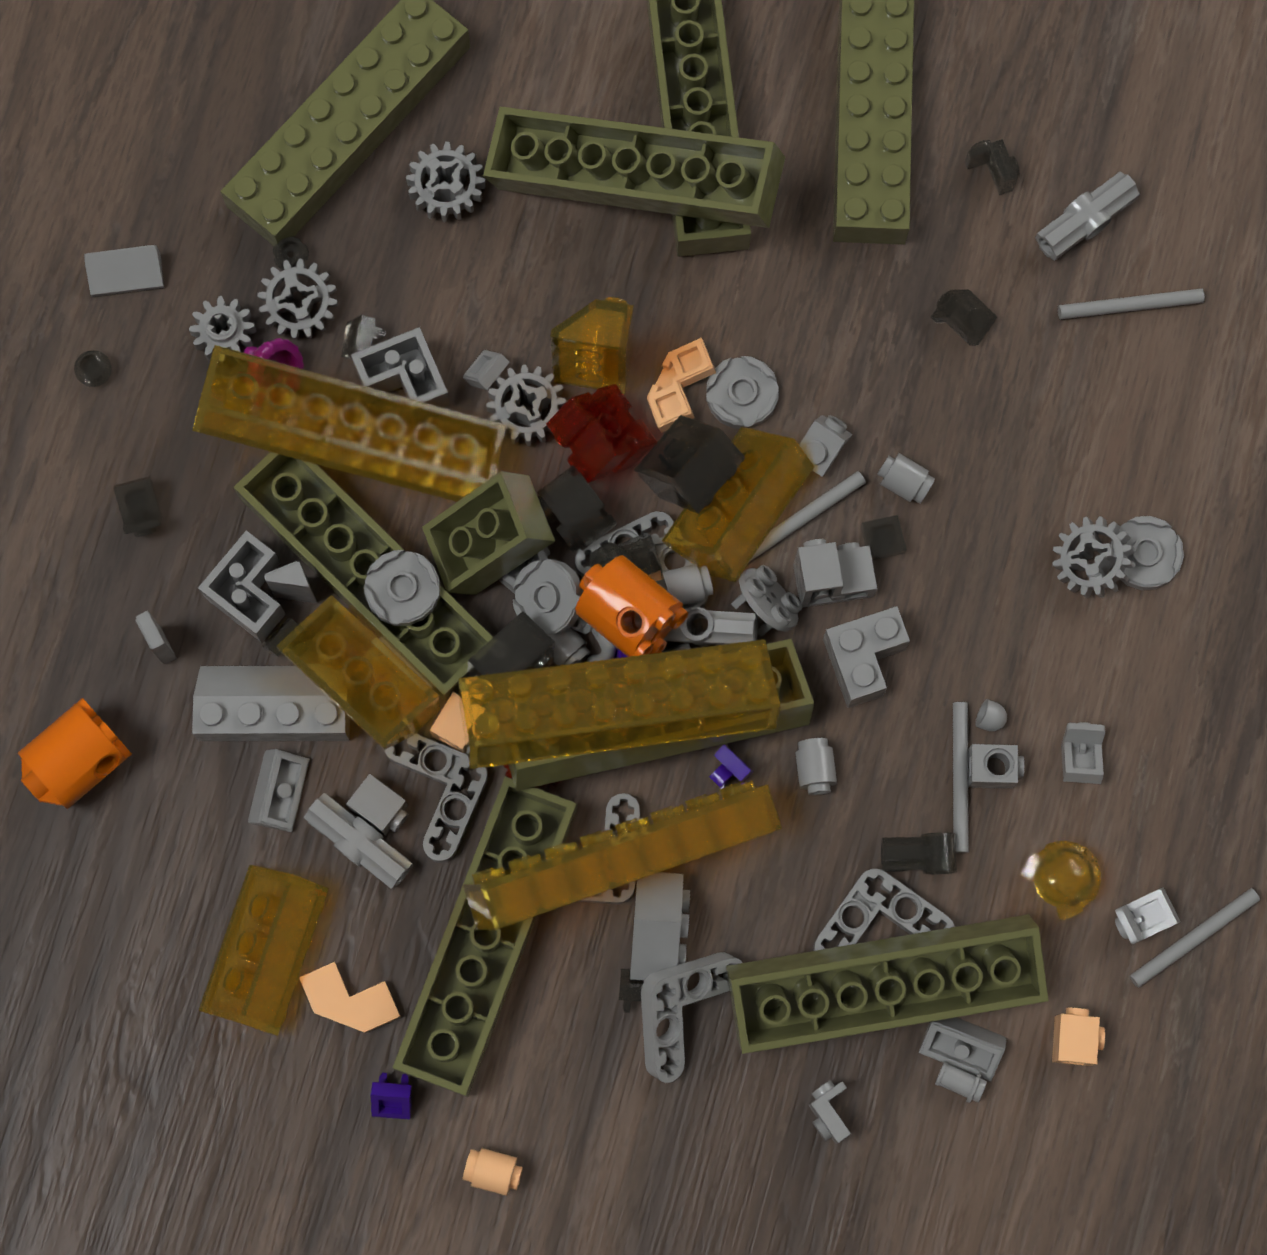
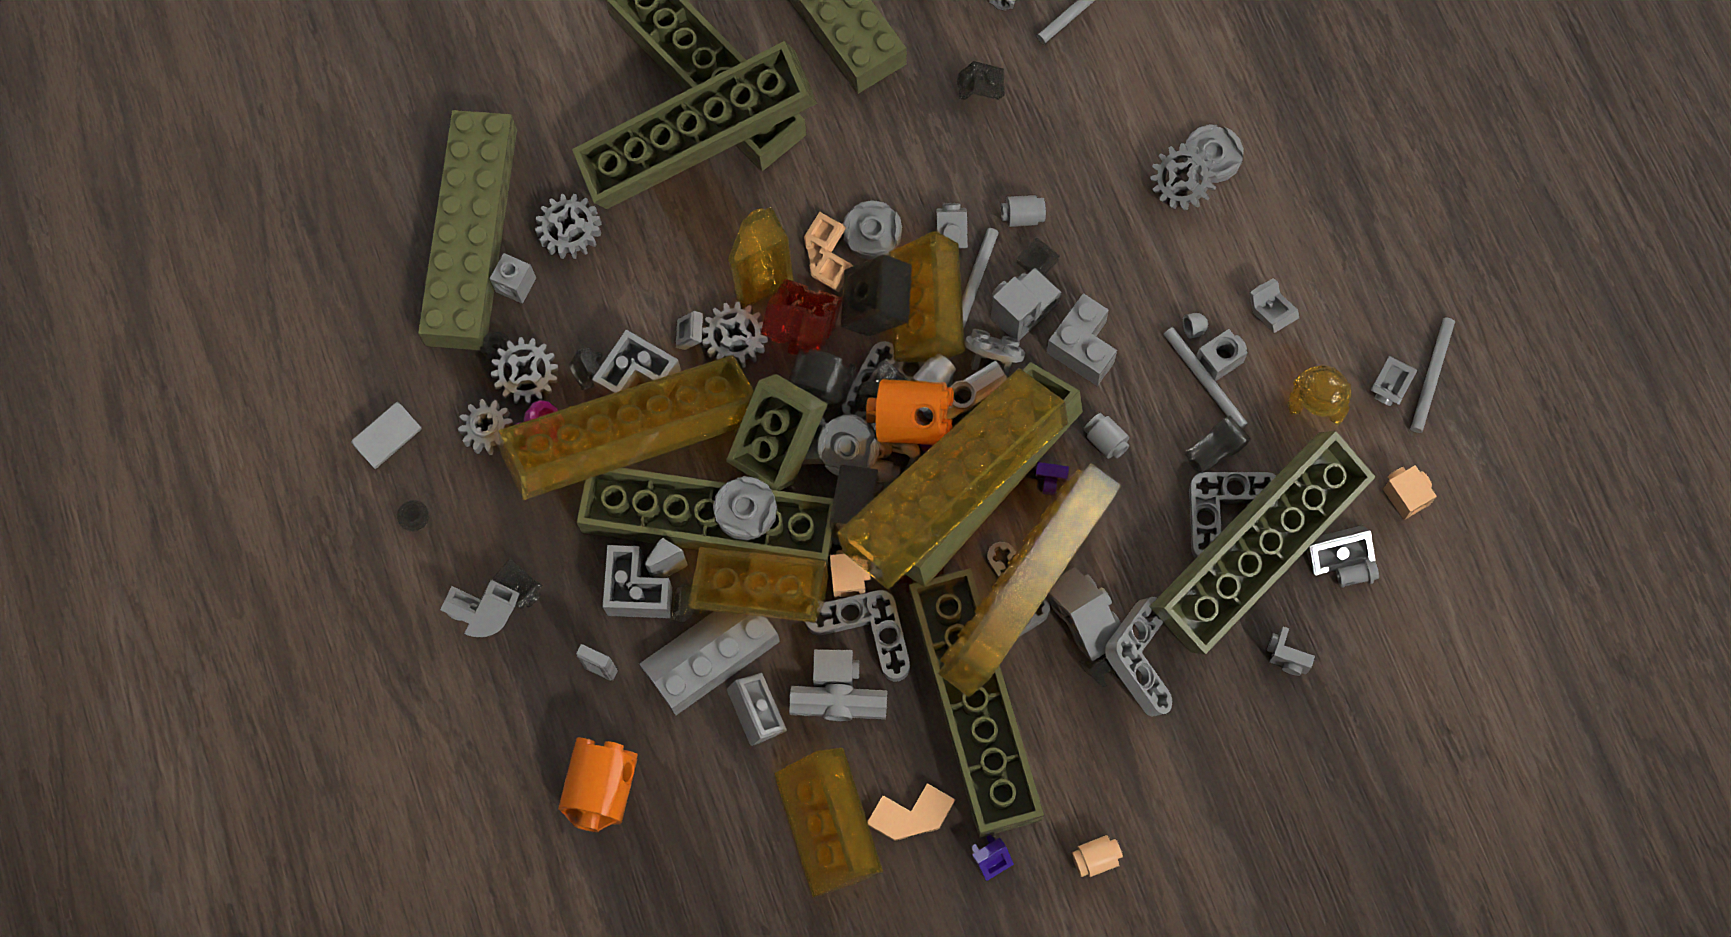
camera: 30 degrees left, 5 degrees down
(84, 513) = (483, 615): none -> light grey brick
(354, 197) = (513, 278): none -> light grey brick

